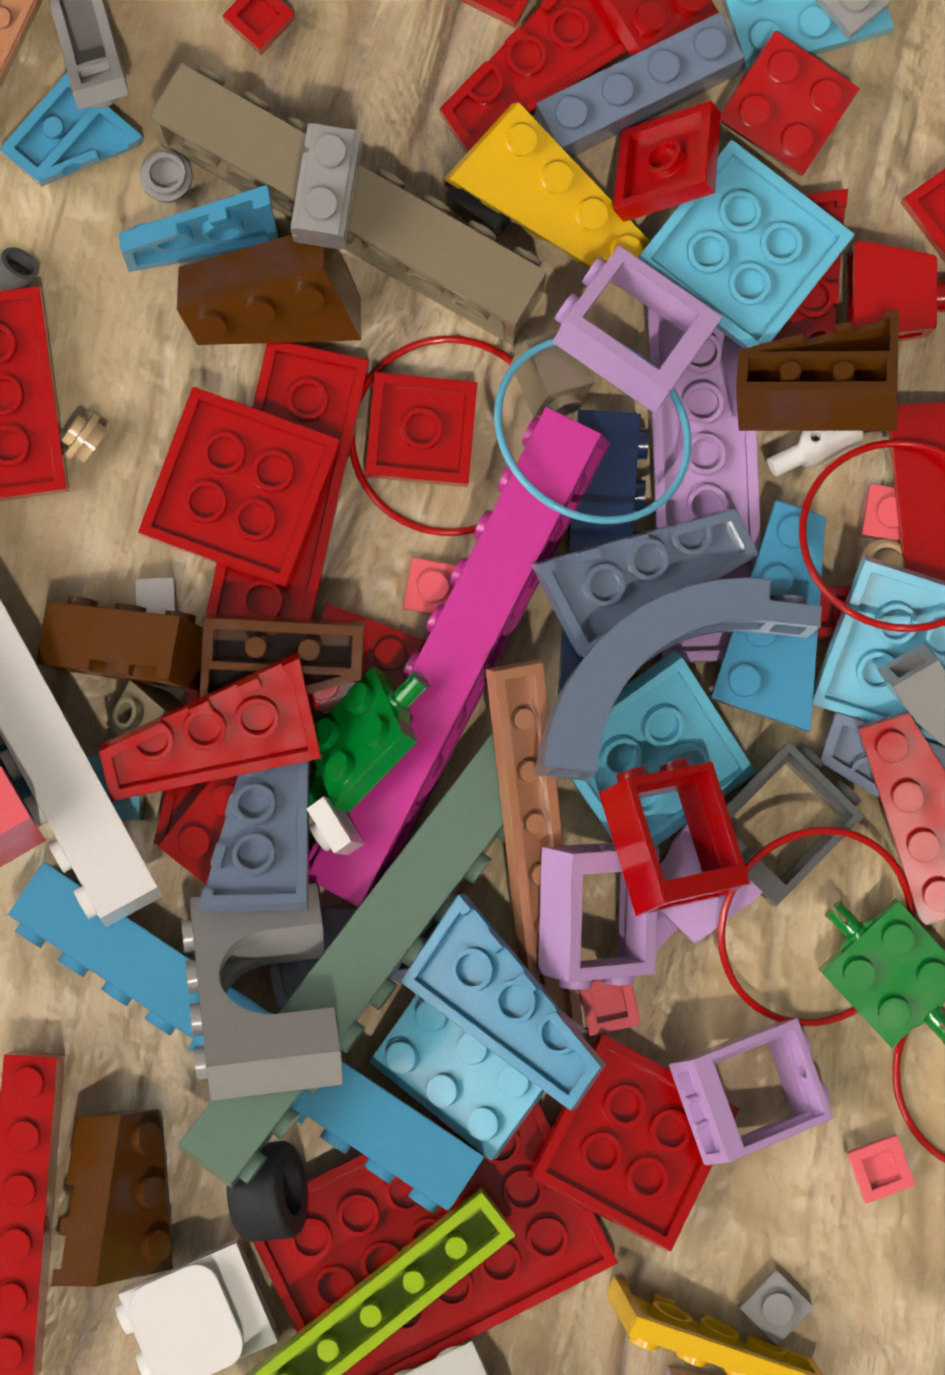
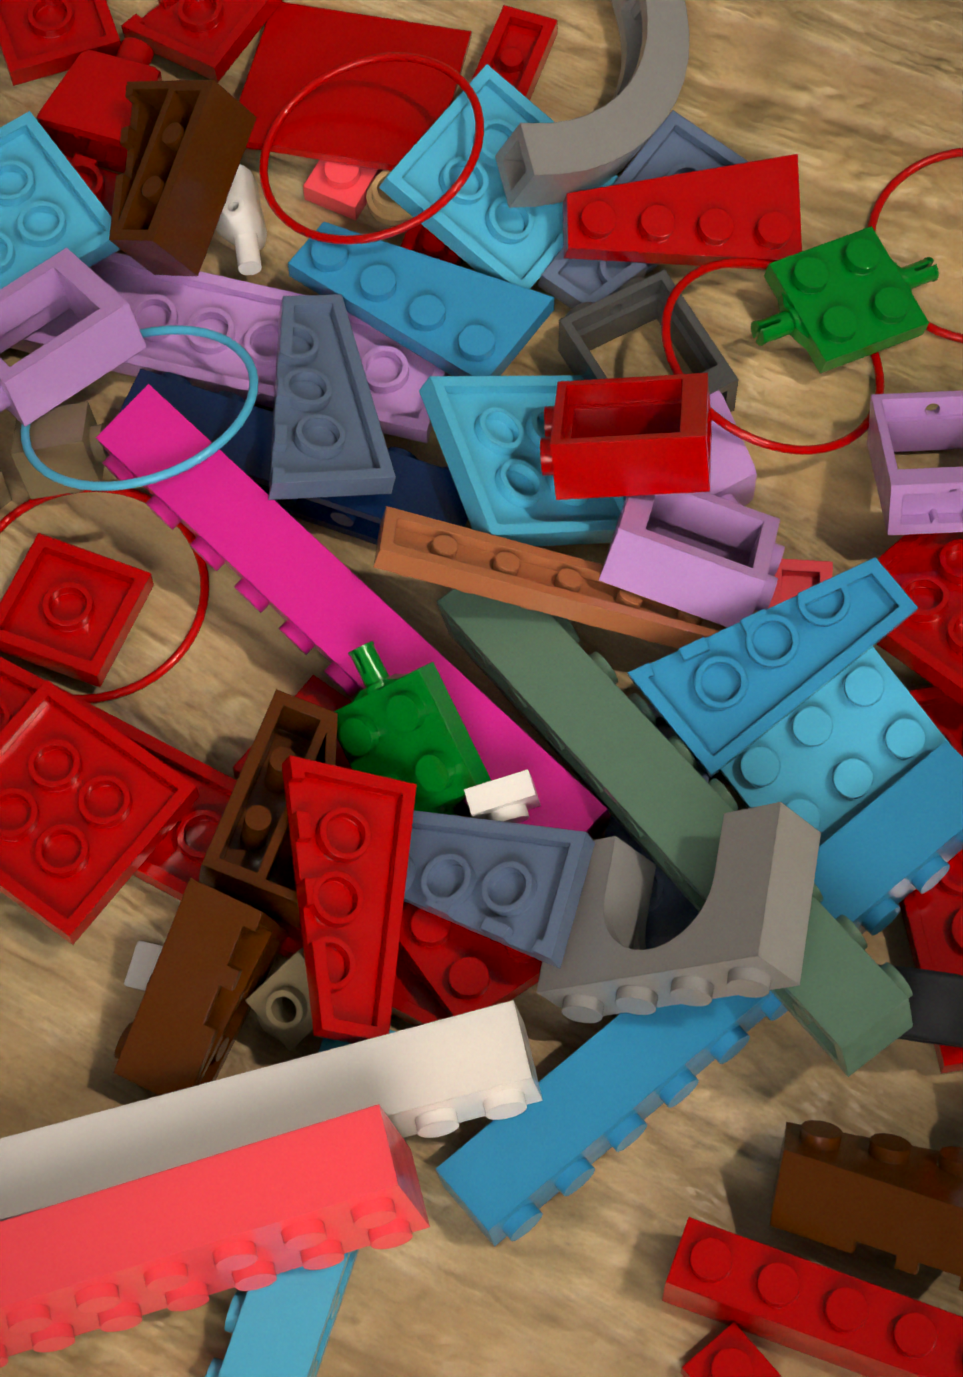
camera: 65 degrees left, 20 degrees down
(427, 585) = (255, 653): coral plate -> none
(582, 707) = (435, 461): sand blue arch -> none

